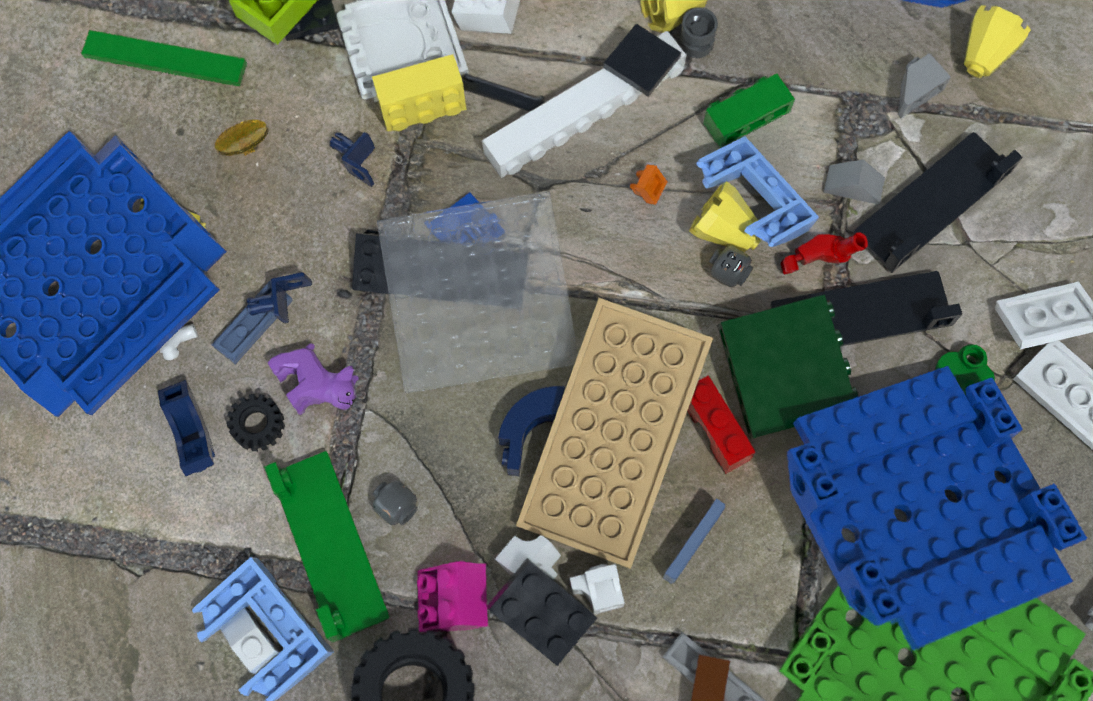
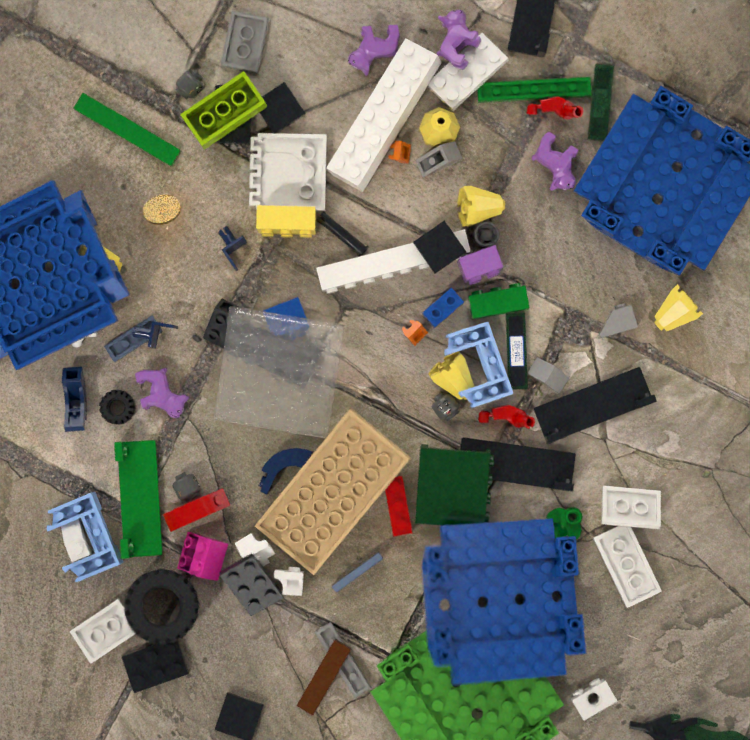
camera: 15 degrees right, 15 degrees up
(418, 530) = (196, 509): none -> red arch
(675, 140) = (442, 308): none -> blue brick
(705, 66) = (480, 264): none -> medium lavender brick
(798, 164) = (516, 350): none -> tile

